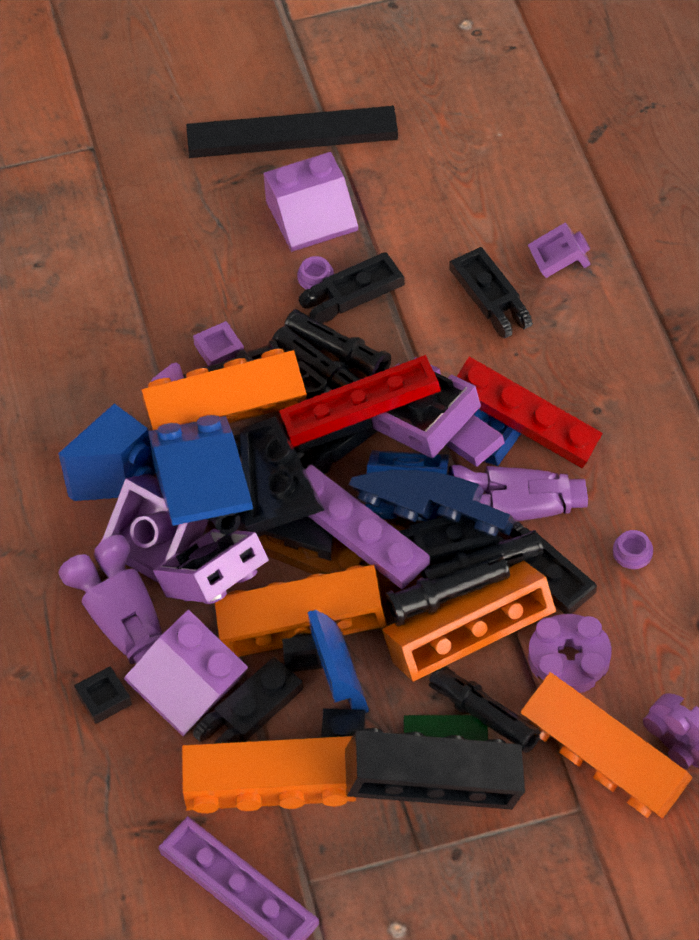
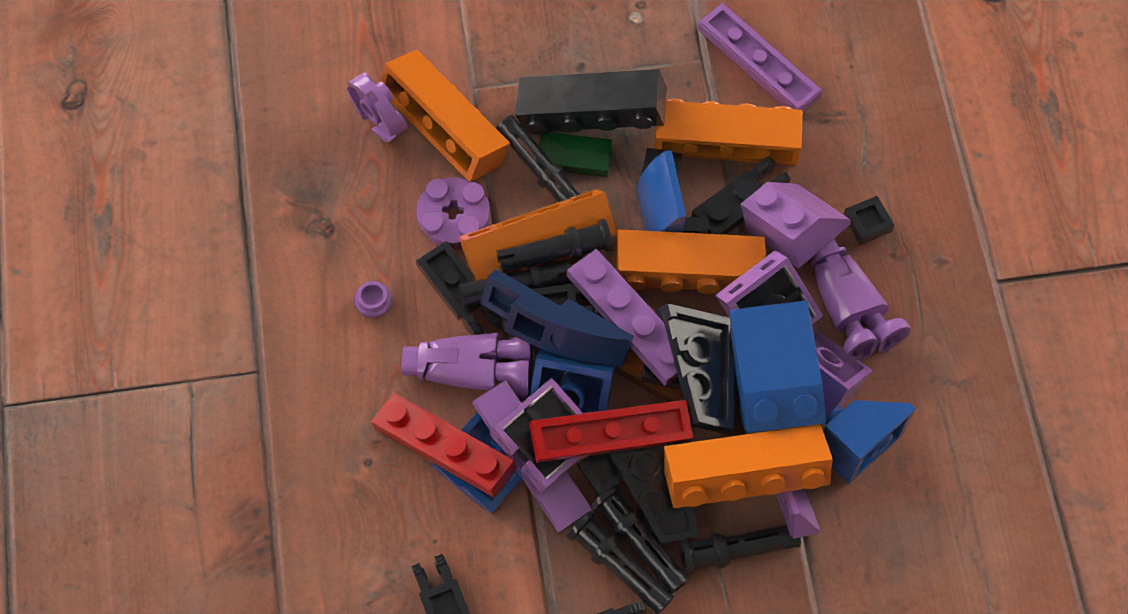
camera: 175 degrees left, 10 degrees up
(217, 343) = (745, 580): medium lavender plate -> none

